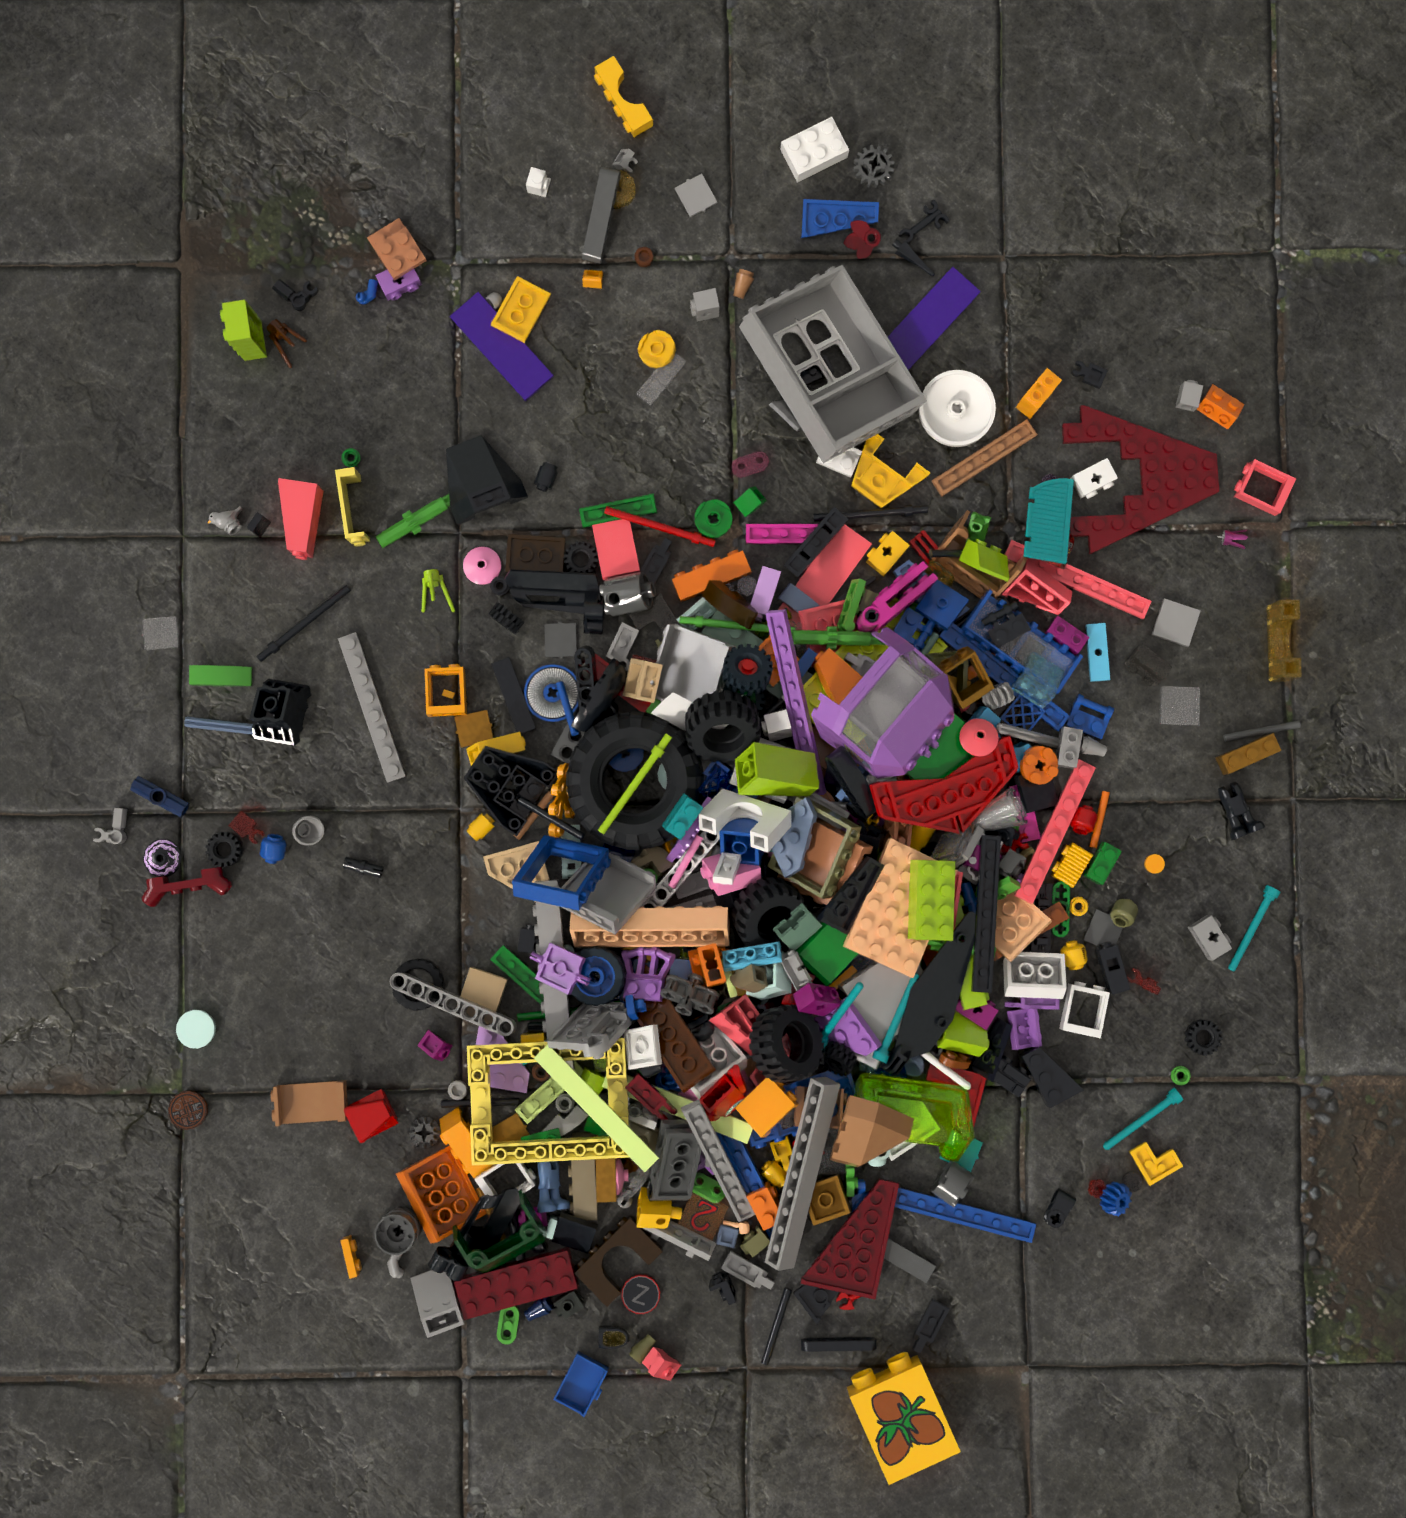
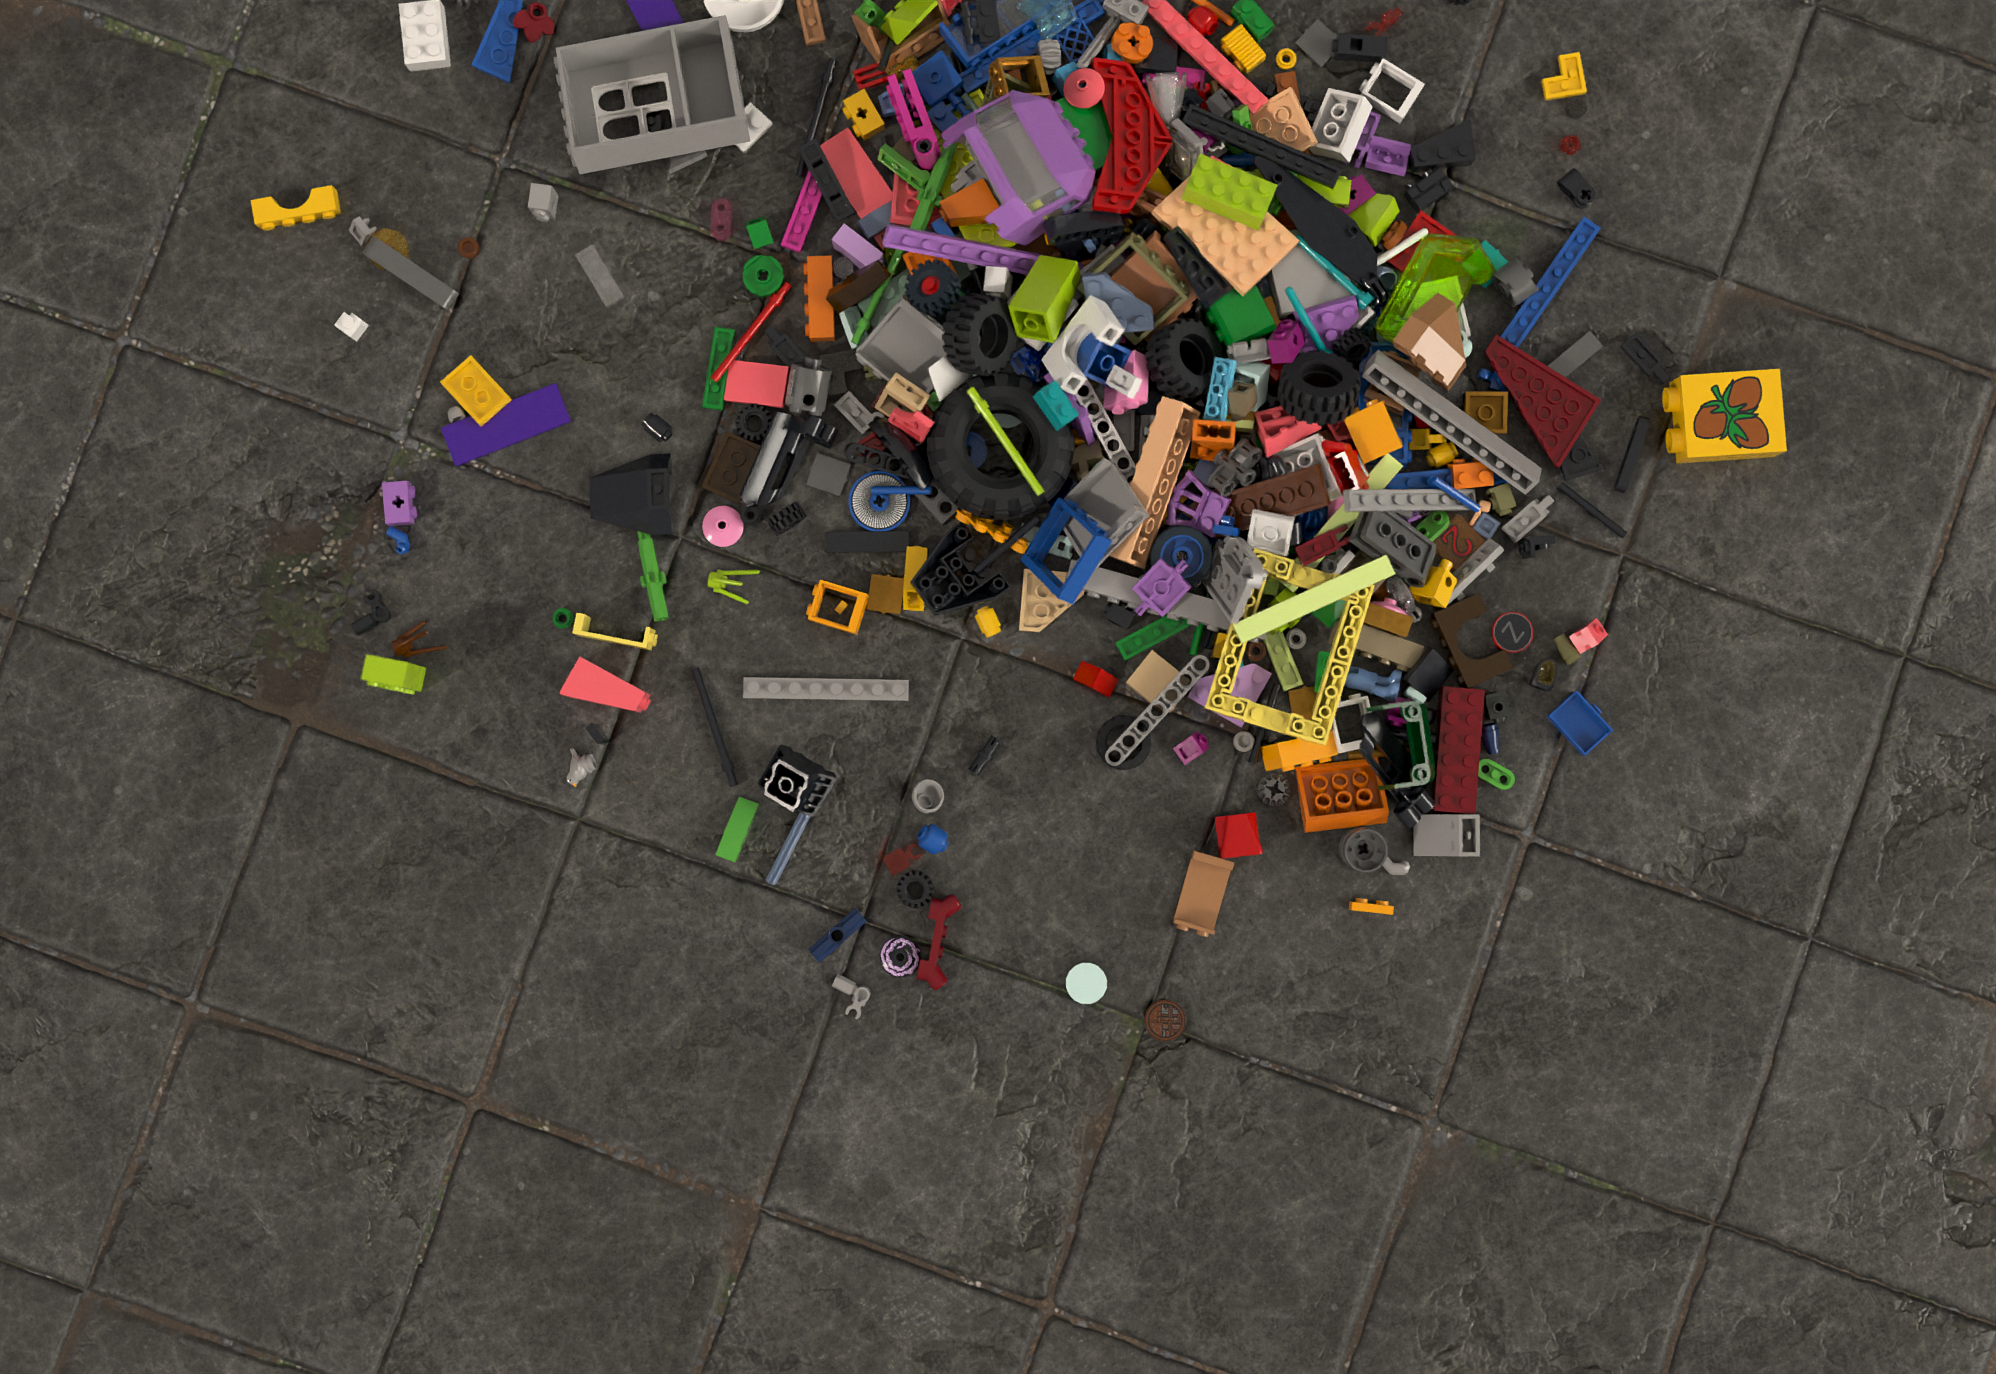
camera: 70 degrees left, 0 degrees up
(160, 633) = (670, 877): clear piece -> none
(396, 249) = (366, 493): nougat bracket -> none
(465, 939) = (1095, 678): none -> red slope
(532, 817) = (995, 565): medium nougat bar -> none
(569, 1122) = (1316, 639): light grey slope -> none
(592, 278) = (471, 307): light orange slope -> none
(625, 695) = (913, 424): none -> coral tile
(656, 349) = (568, 269): yellow tile -> none
(685, 861) = (1101, 426): bright pink bar -> none
(695, 195) = (425, 173): light grey piece -> none
(742, 283) = (532, 157): medium nougat cone -> none
(742, 1199) = (1455, 494): none -> blue bar
(798, 927) = (1207, 334): sand green brick -> none
(849, 1305) = (1596, 430): red bar -> none
(850, 1181) = (1475, 382): bright green plate -> none
(878, 480) = (785, 97): yellow wing -> none
(989, 1061) = (1408, 201): black wing -> none
(1066, 894) = (1279, 69): green beam -> none
(1074, 955) = (1333, 78): yellow head -> none
(1115, 1198) = (1587, 129): blue gear -> none
(1124, 912) = (1309, 15): olive head -> none
(1172, 1098) = (1508, 37): teal piece -> none
(1186, 1075) = (1489, 16): bright green plate -> none

